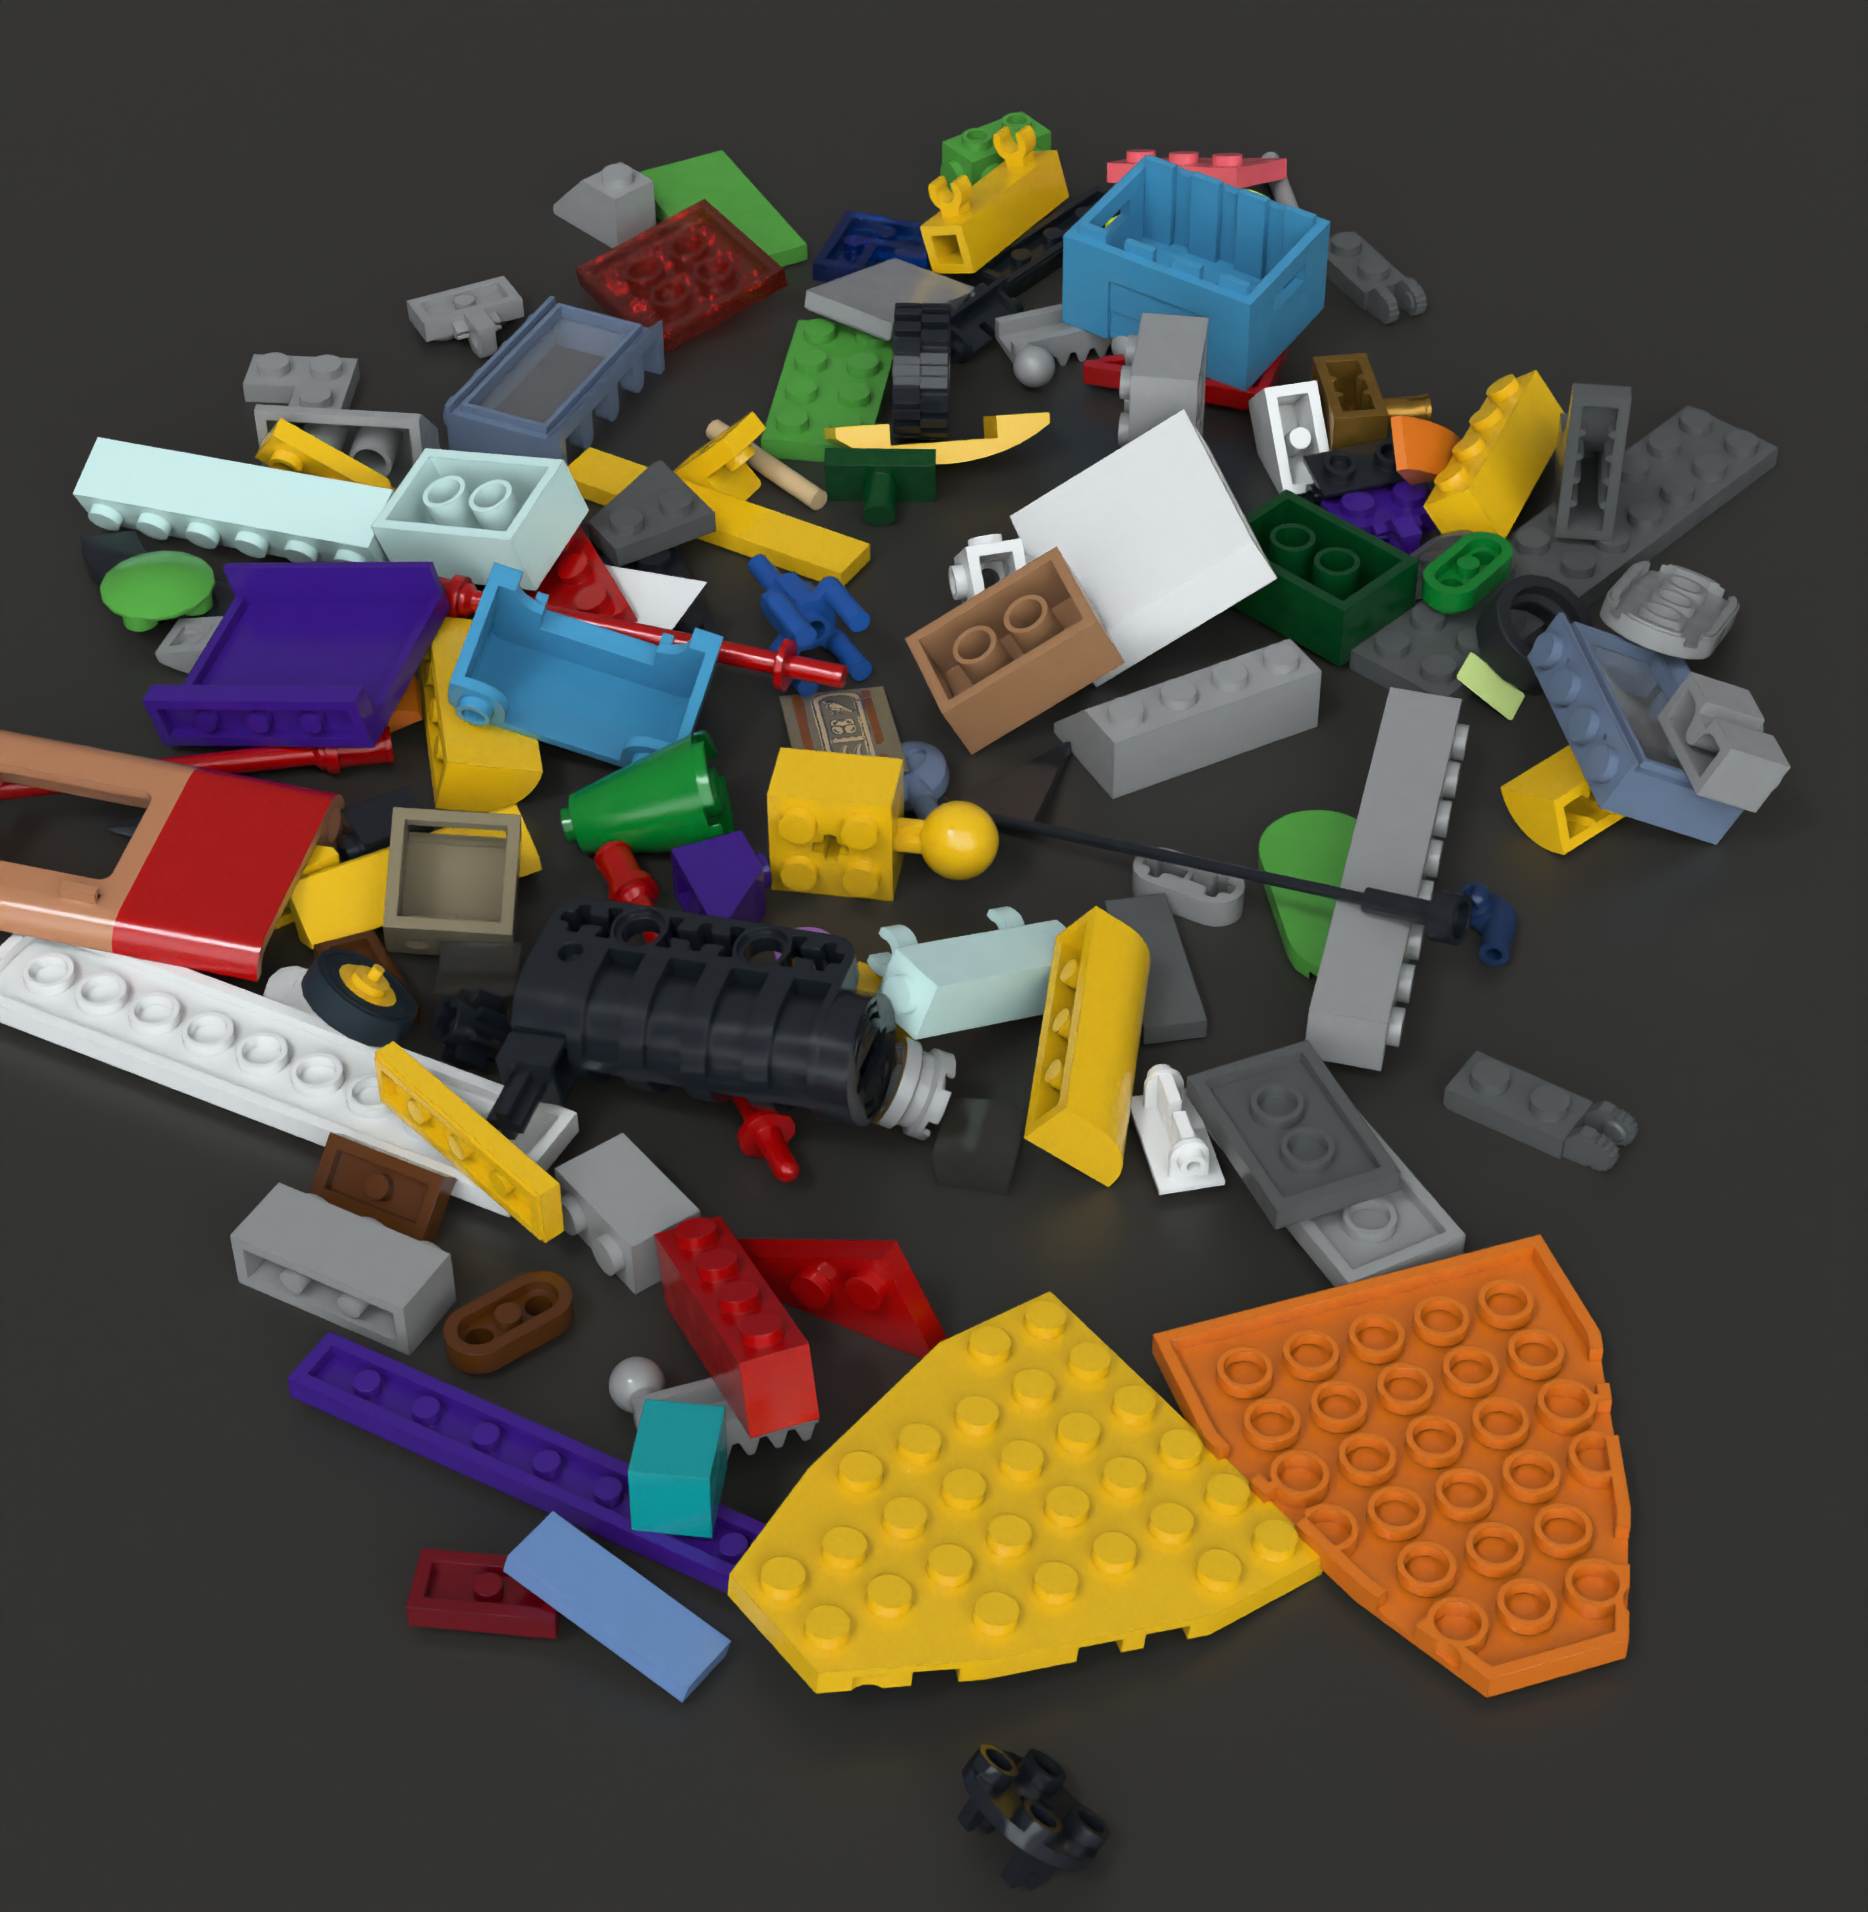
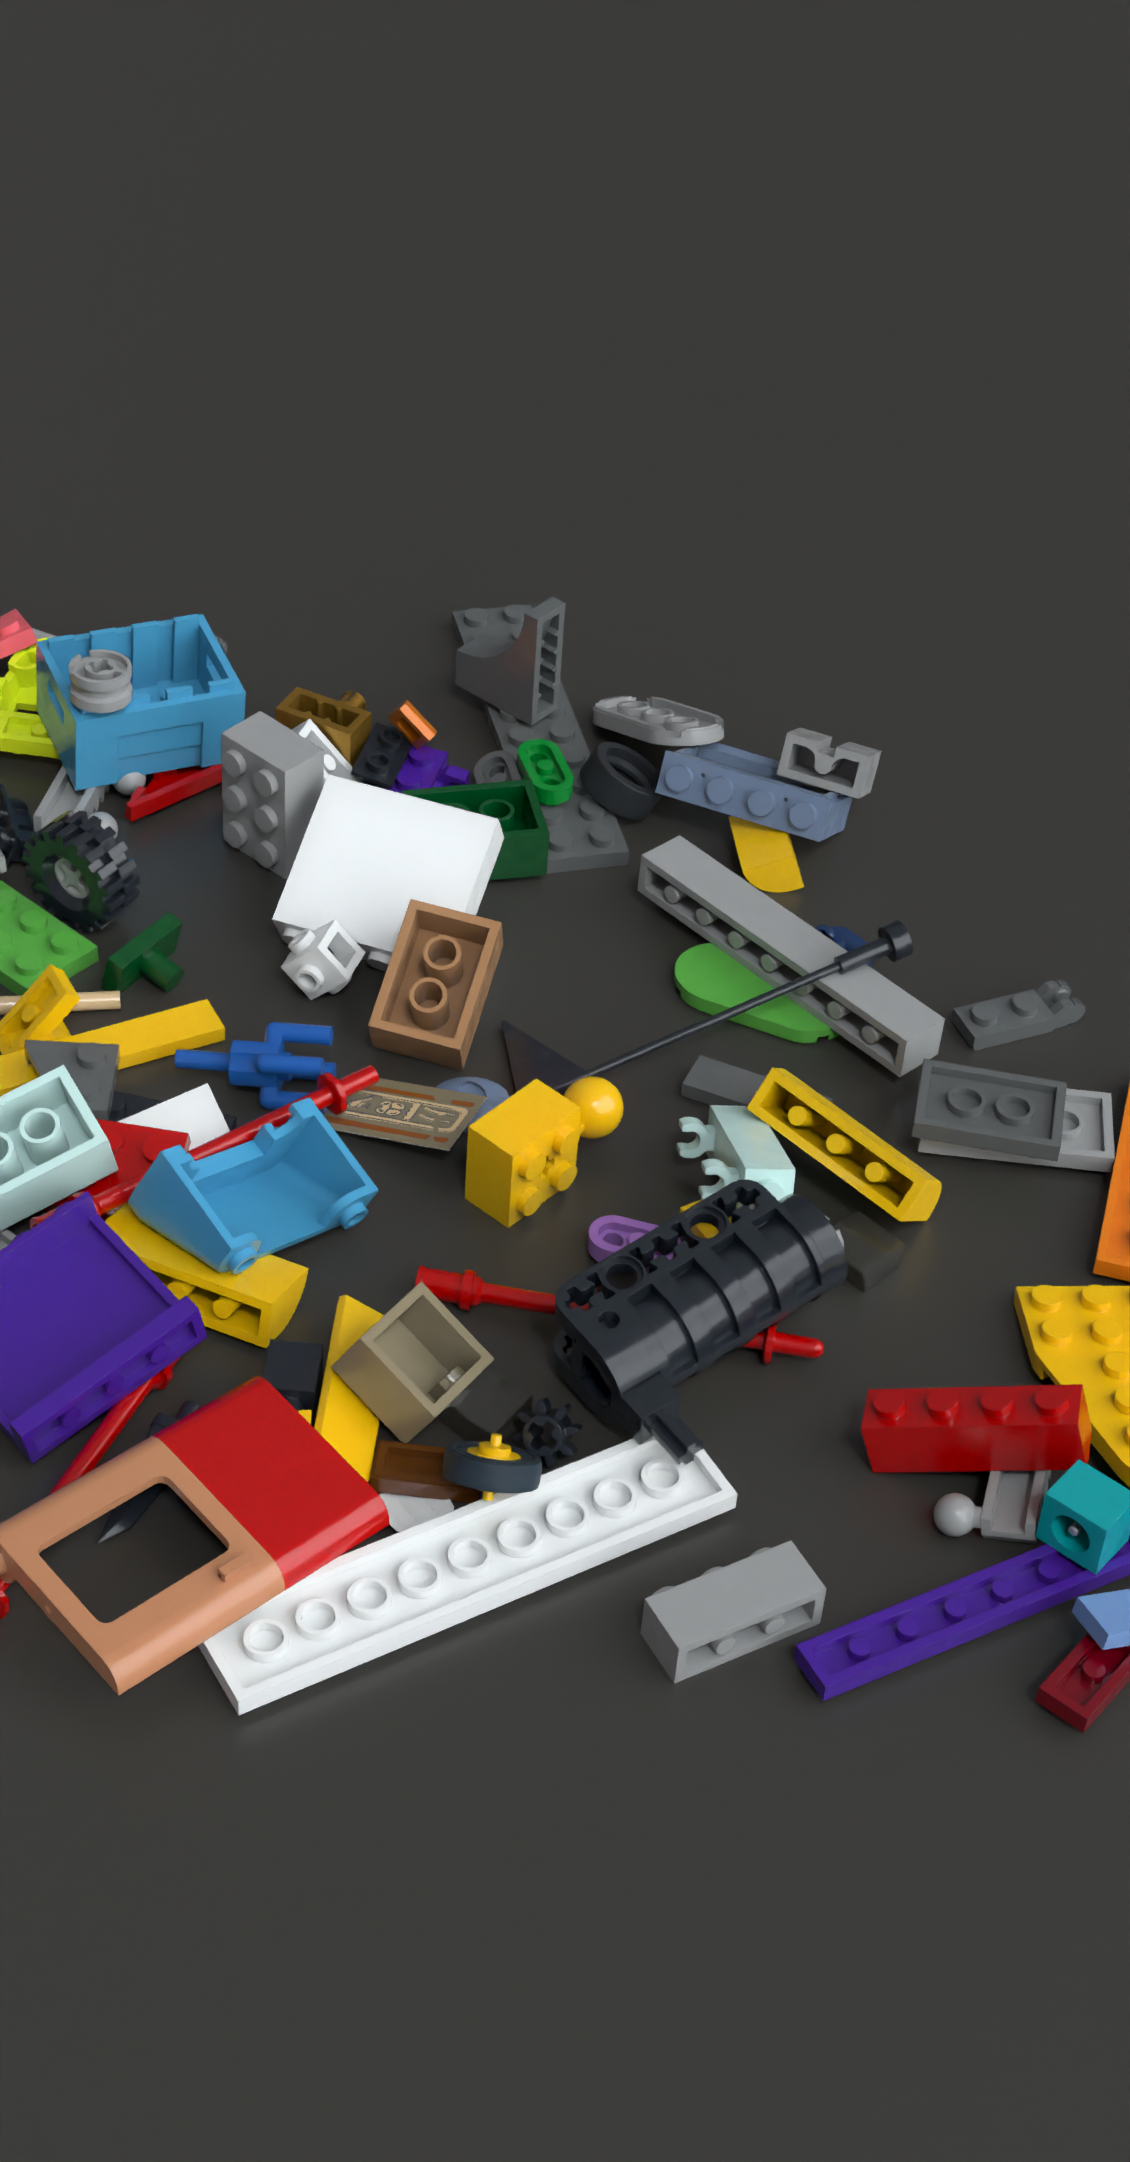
camera: 60 degrees left, 0 degrees up
(382, 1186) = (666, 1554): reddish brown plate -> none
(469, 1142) = (690, 1478): yellow tile -> none
(504, 1322) = (850, 1555): reddish brown plate -> none
(617, 1205) = (796, 1441): light grey brick -> none
(654, 802) = (408, 1225): green cone -> none
(721, 878) = (519, 1248): dark purple slope -> none
(852, 1285) = (970, 1358): red wing -> none
(999, 435) = (161, 888): yellow slope -> none
(1113, 208) = (100, 681): none -> light grey wheel
(1173, 1135) = (942, 1162): white hinge -> none
(1191, 892) = (714, 1042): light grey beam -> none
(1196, 718) = (539, 953): light grey slope -> none
(1490, 686) = (633, 827): yellowish green sticker -> none
(1497, 458) = (440, 702): yellow brick -> none

